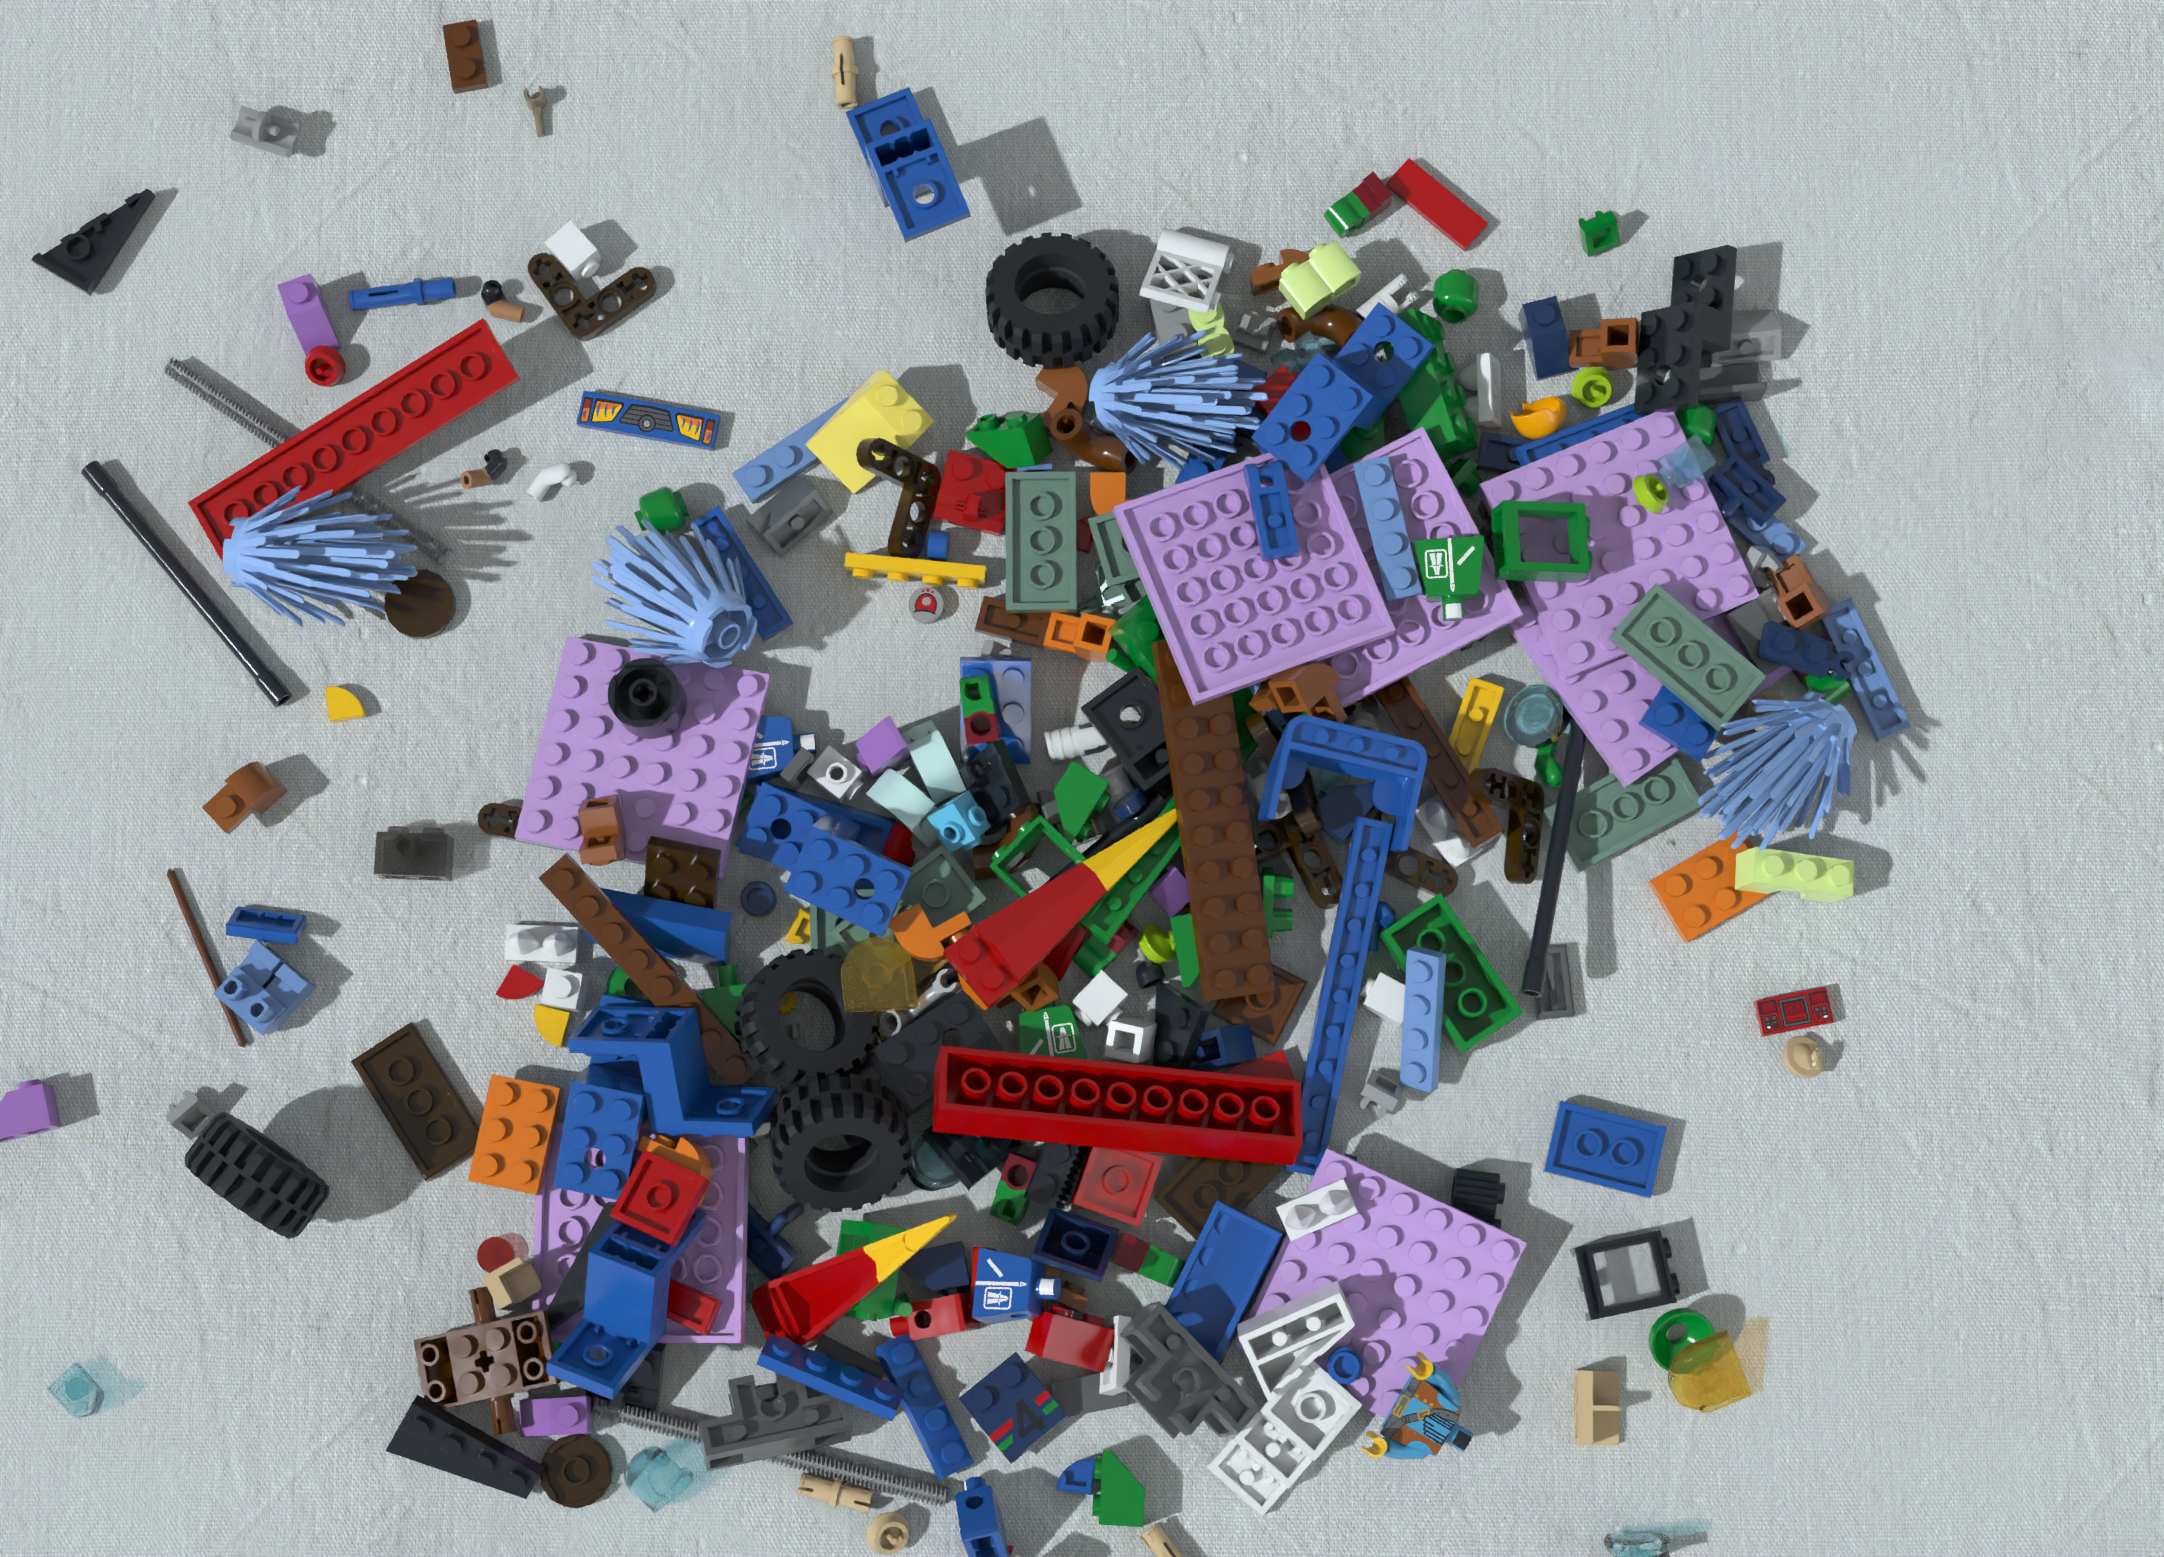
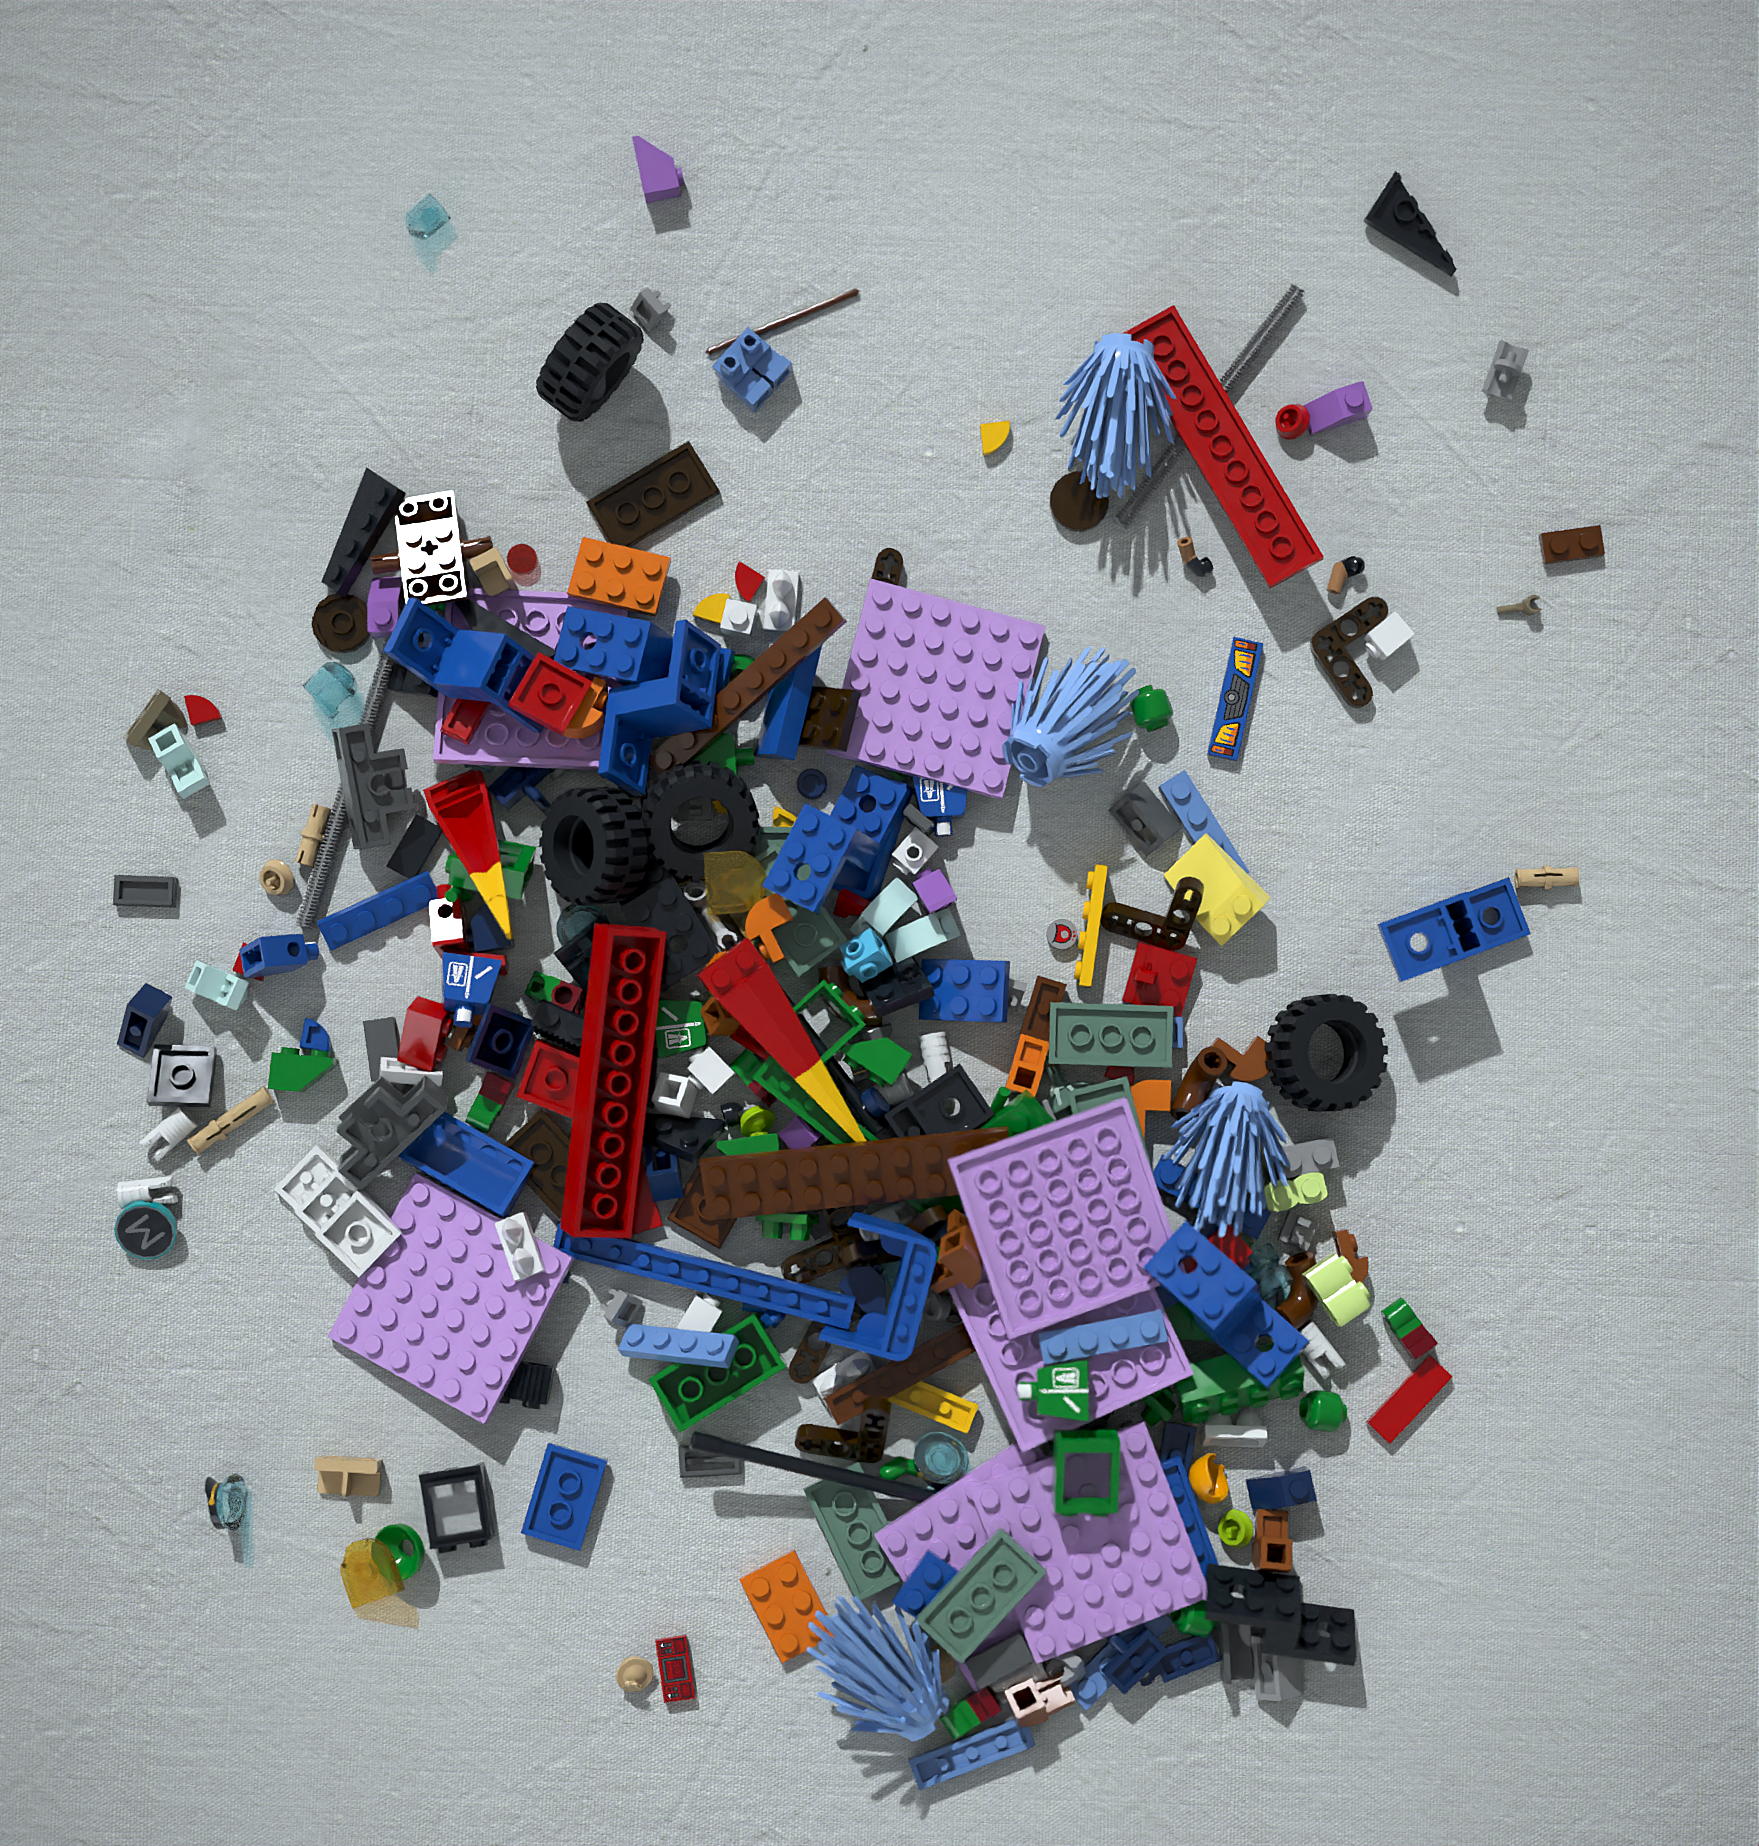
camera: 85 degrees right, 5 degrees up
(246, 790) = (917, 352): dark orange brick -> none
(263, 676) = (1189, 238): black piece -> none
(266, 925) = (805, 371): blue plate -> none
(407, 293) = (1356, 499): blue pin -> none
(414, 854) = (860, 494): clear smoke brick -> none
(549, 476) = (1187, 614): white arm -> none
(602, 831) = (866, 652): dark orange brick -> none
(634, 685) = (994, 682): black brick -> none
(759, 595) = (1072, 790): blue plate -> none
(831, 1376) = (402, 833): blue plate -> none
(938, 545) = (1113, 946): blue piece -> none
(979, 710) = (959, 975): leg -> none
(1012, 439) = (1204, 1013): green slope -> none
(1013, 1407) = (372, 984): dark blue slope -> none
(1189, 258) = (1365, 1176): white piece -> none
(1271, 511) = (1117, 1235): blue plate -> none
(1294, 1335) = (416, 1222): white wedge -> none
(1345, 1365) = (391, 1264): blue plate -> none
(1421, 1417) = (343, 1325): torso -> none
(1599, 233) = (1377, 1543): green tile -> none
(1650, 492) = (1128, 1572): lime hat -> none
(1687, 462) = (1155, 1606): clear light blue bracket -> none
(1778, 870) = (790, 1677): yellowish green arch -> none
(1802, 652) = (984, 1697): dark blue plate -> none

